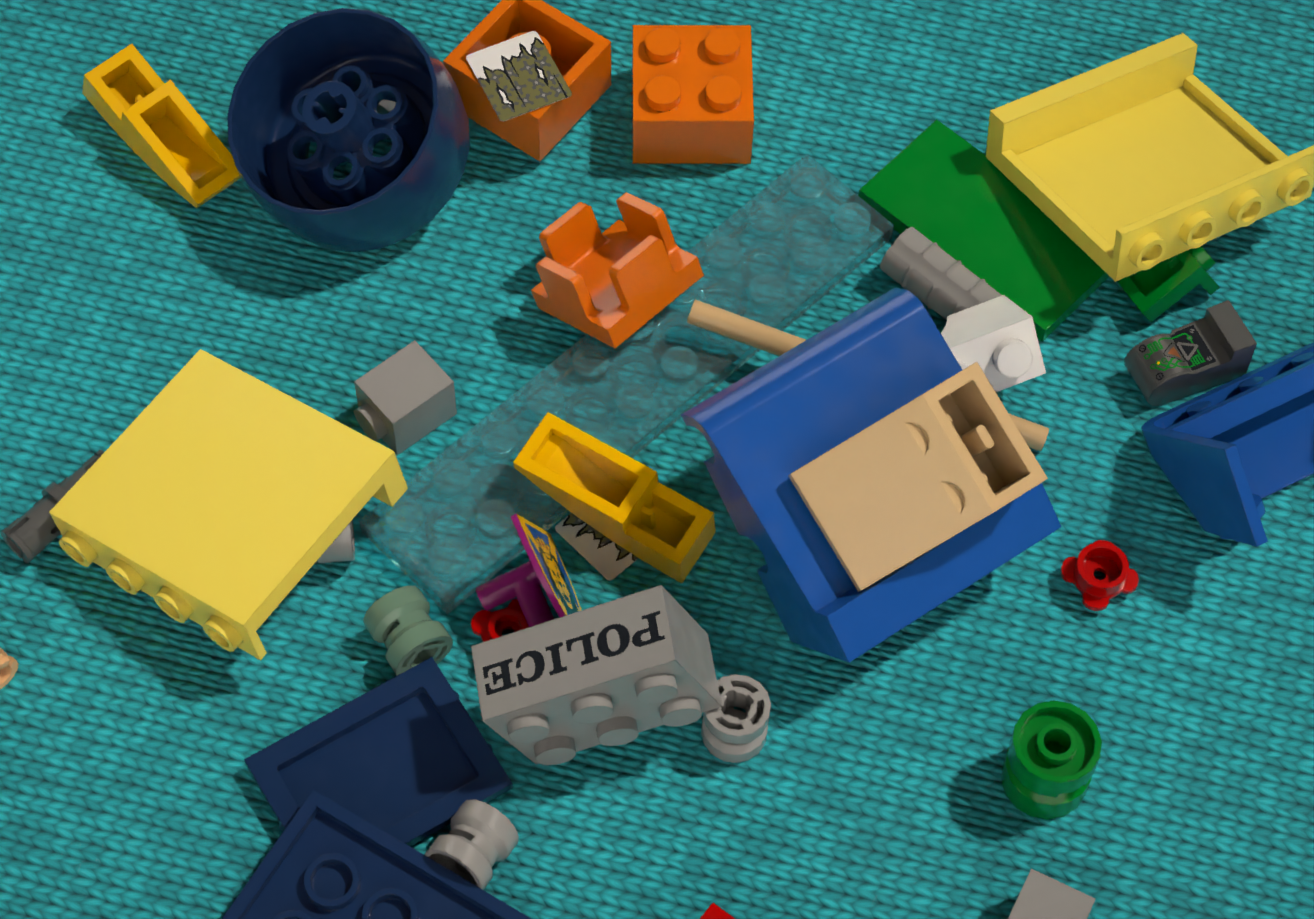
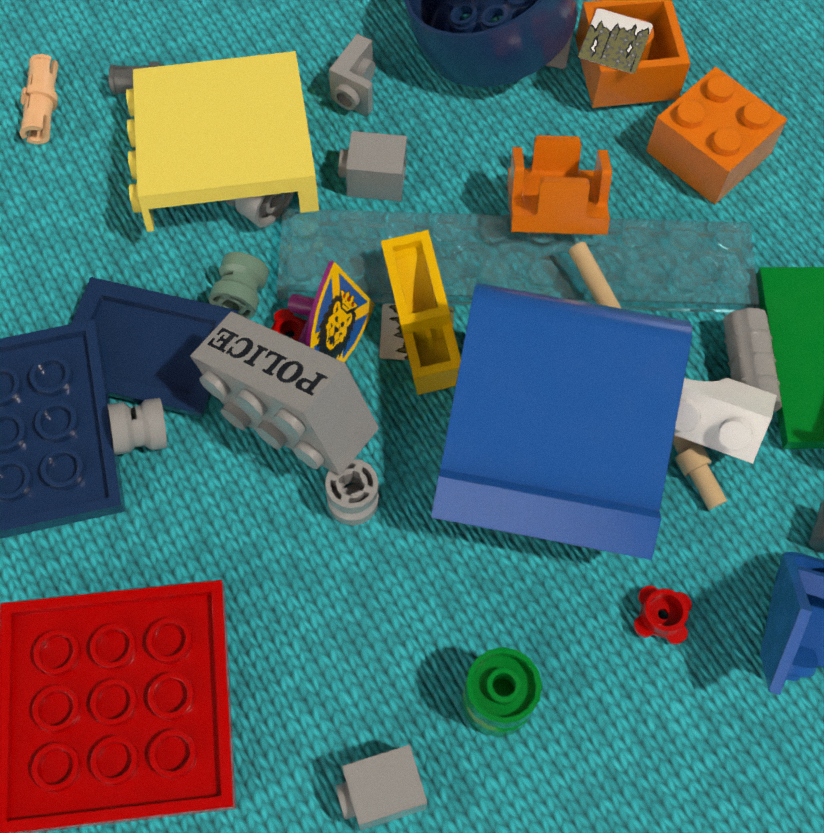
camera: 45 degrees right, 5 degrees up
(280, 339) = (352, 76): none -> light grey bracket
(918, 477) = (574, 440): tan slope -> none

